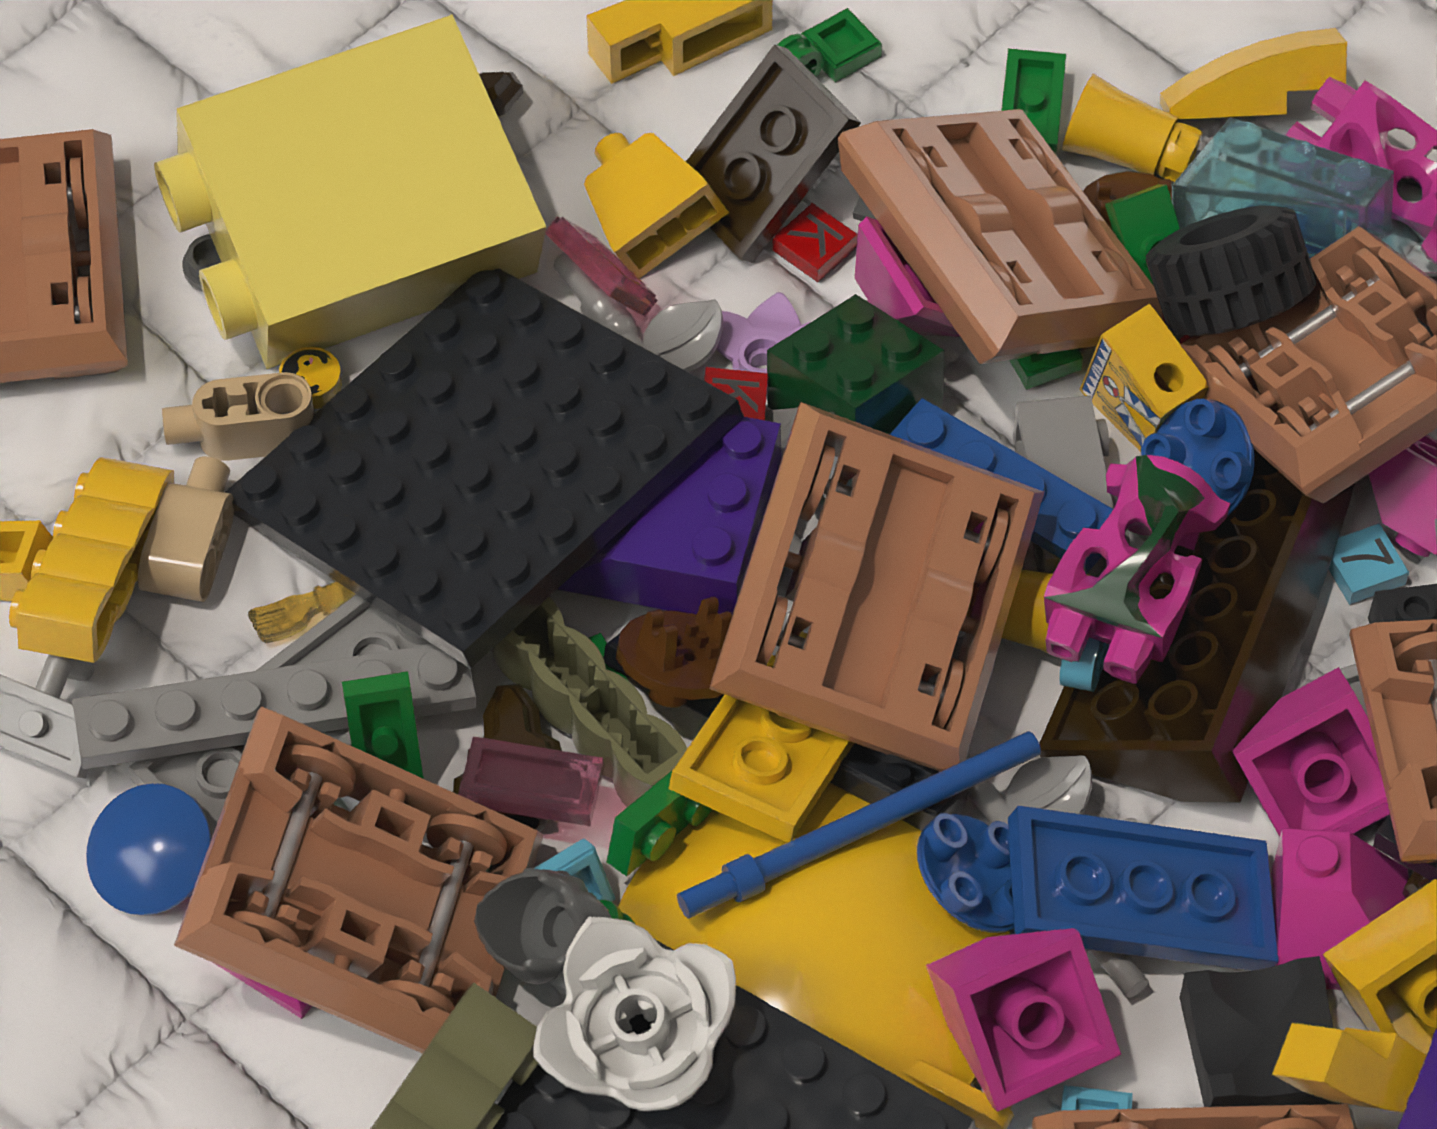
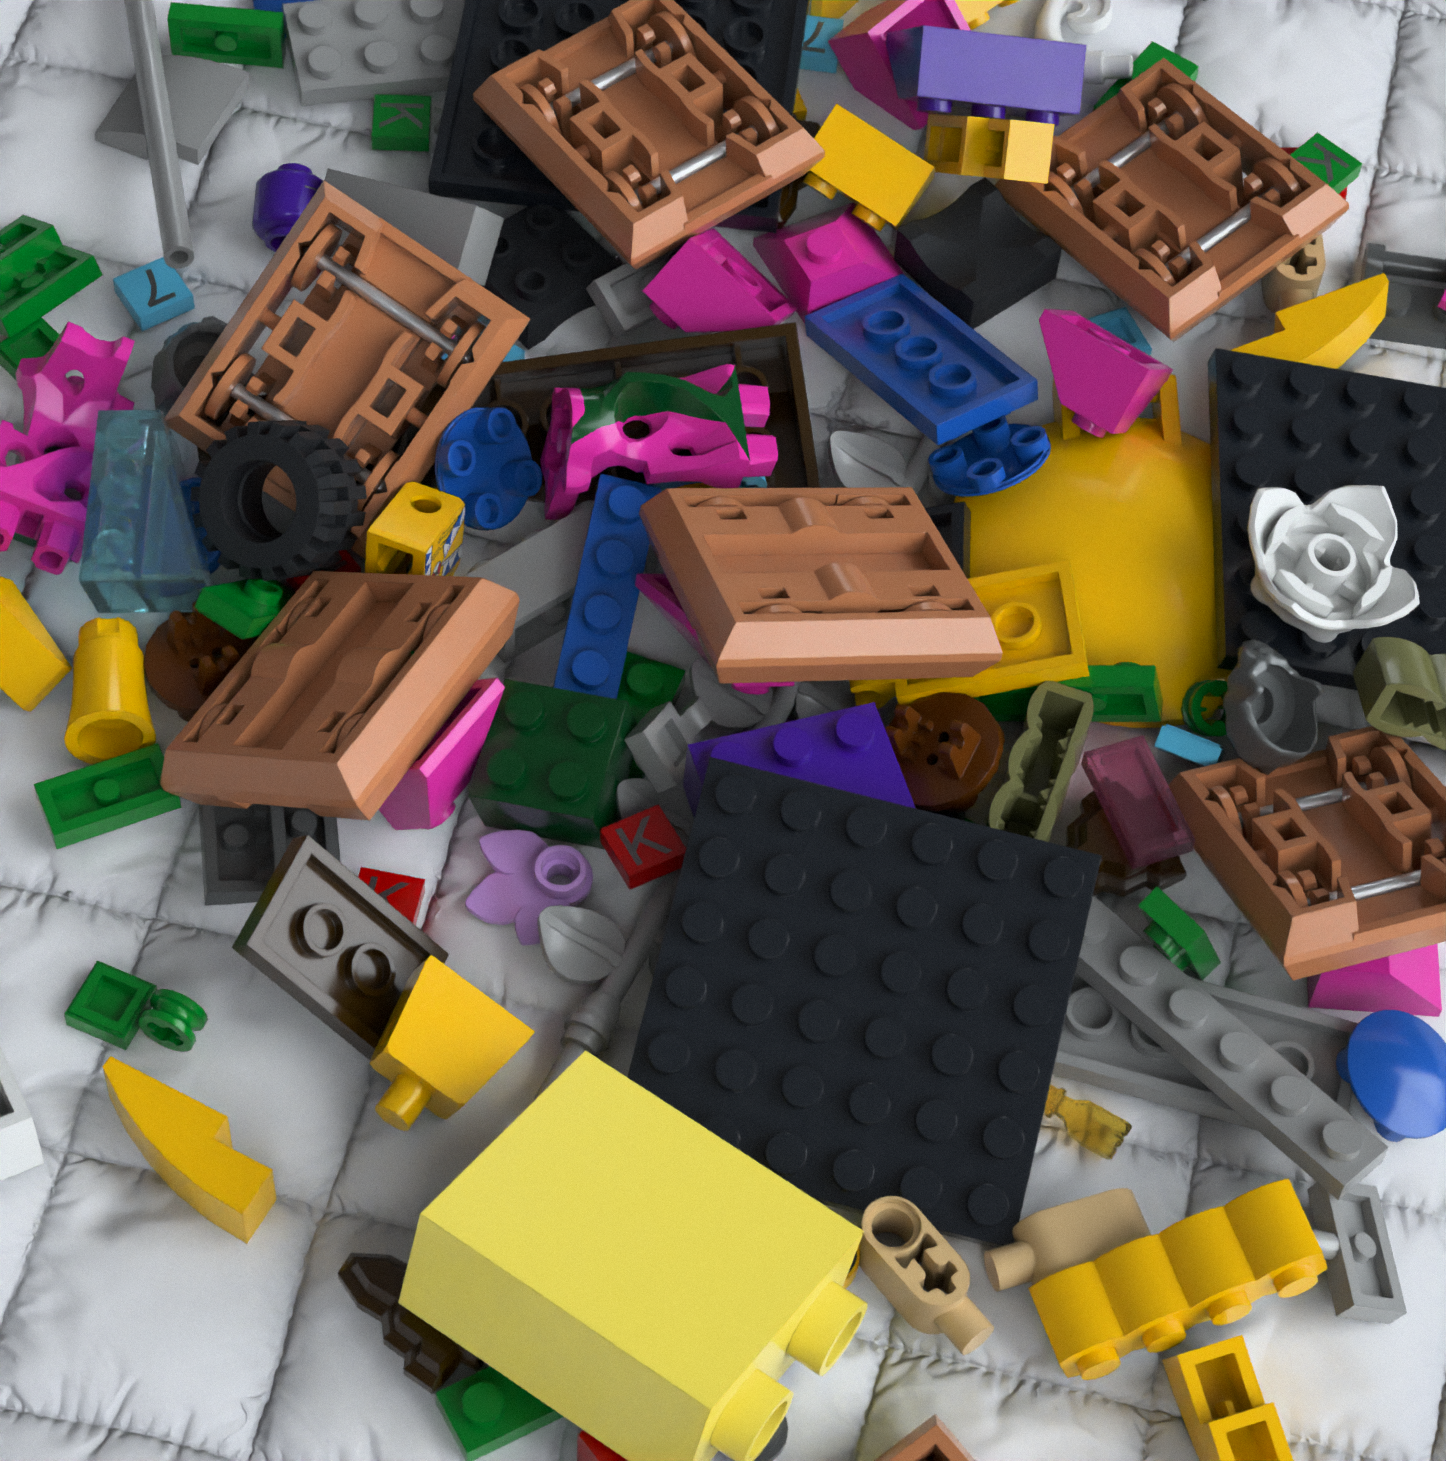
camera: 125 degrees left, 0 degrees up
(601, 265) = (550, 1048): clear pink tile -> none
(748, 875) = (1125, 585): blue bar -> none

